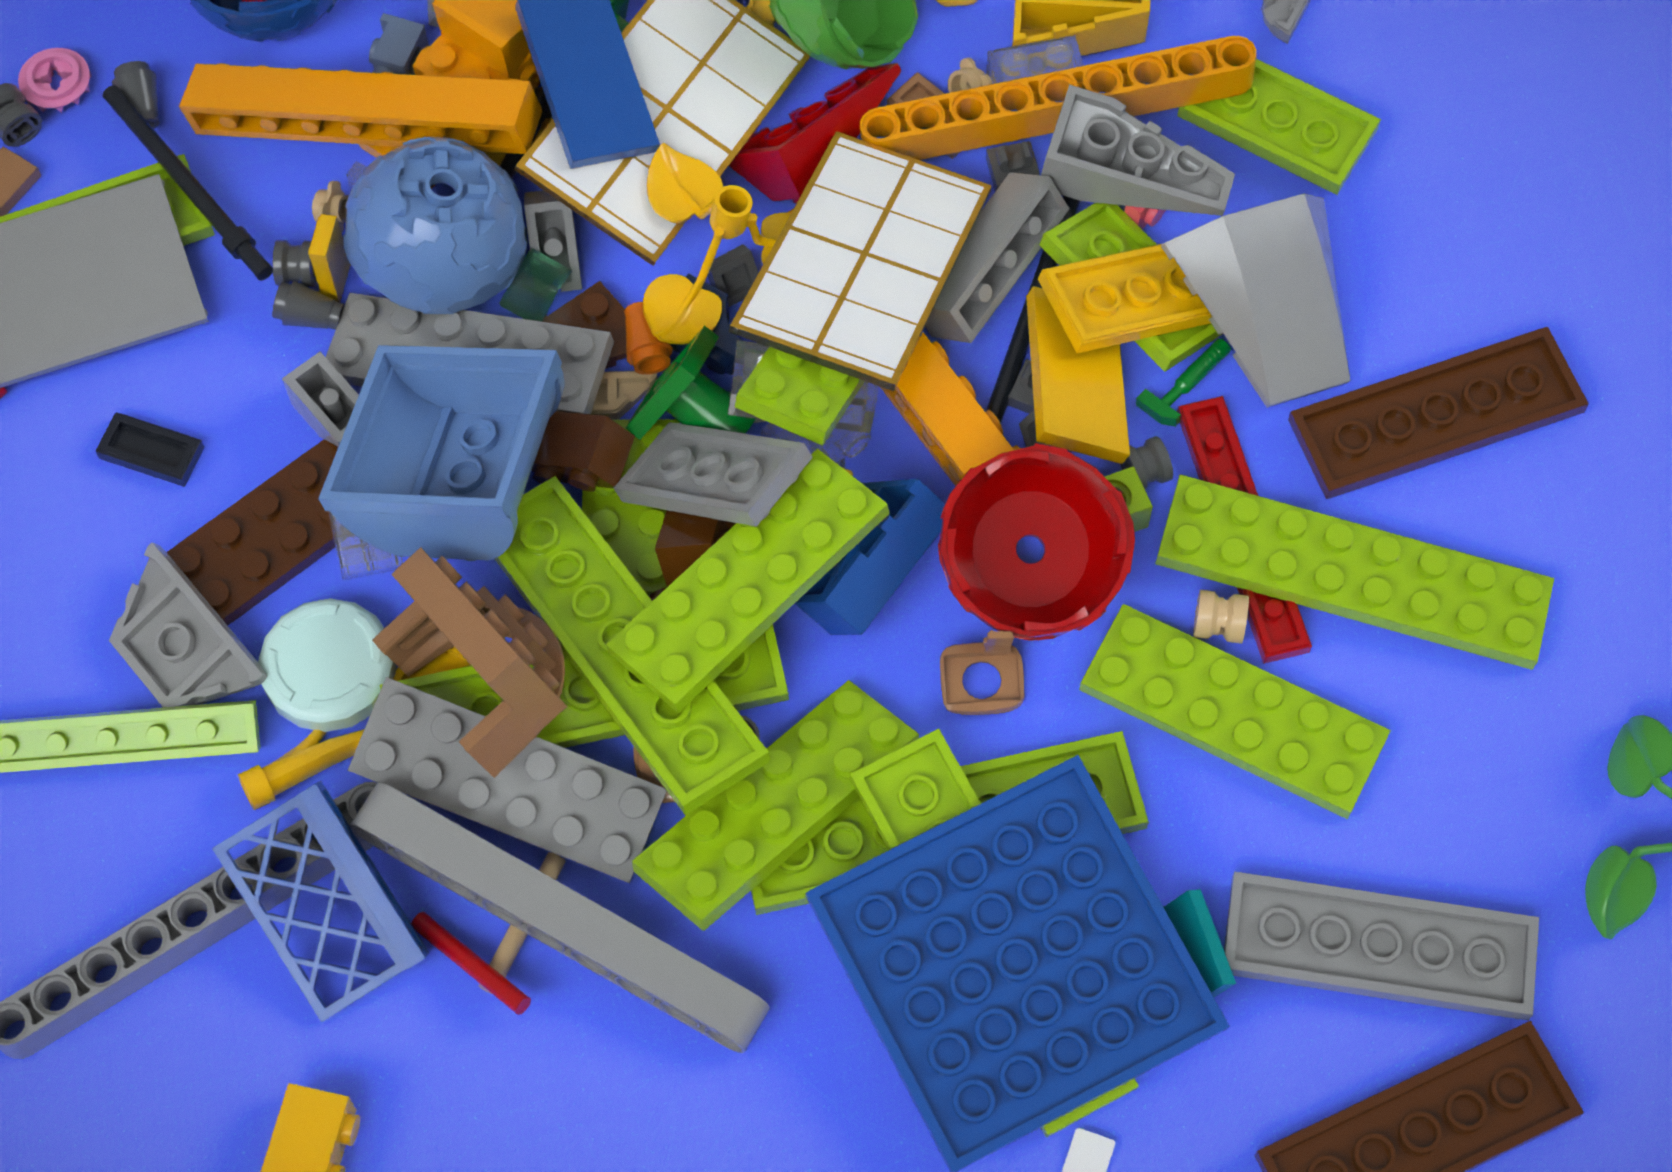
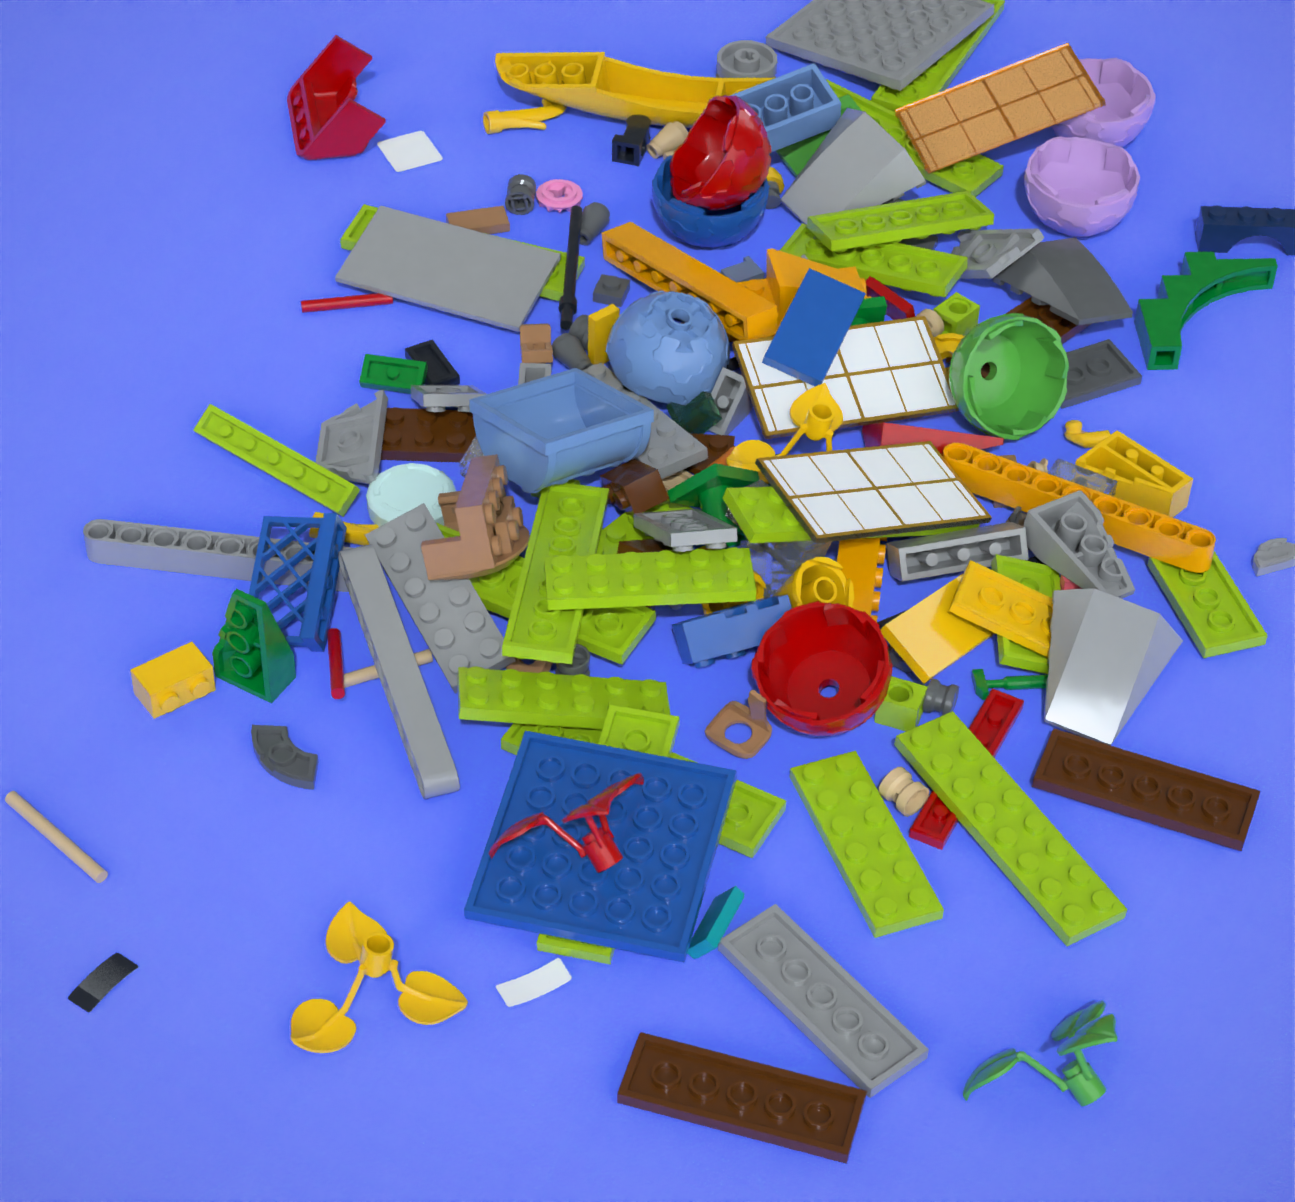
camera: 40 degrees right, 20 degrees down
(123, 501) = (392, 373): none -> green plate
(230, 486) = (438, 397): none -> light grey plate
(253, 329) = (536, 343): none -> medium nougat bracket
(254, 175) = (611, 290): none -> dark grey plate
(386, 1046) = (253, 649): none -> green wedge
(529, 1136) = (282, 757): none -> dark grey tile
(929, 443) = (819, 581): none -> yellow cone
(1047, 978) = (597, 843): none -> red plant

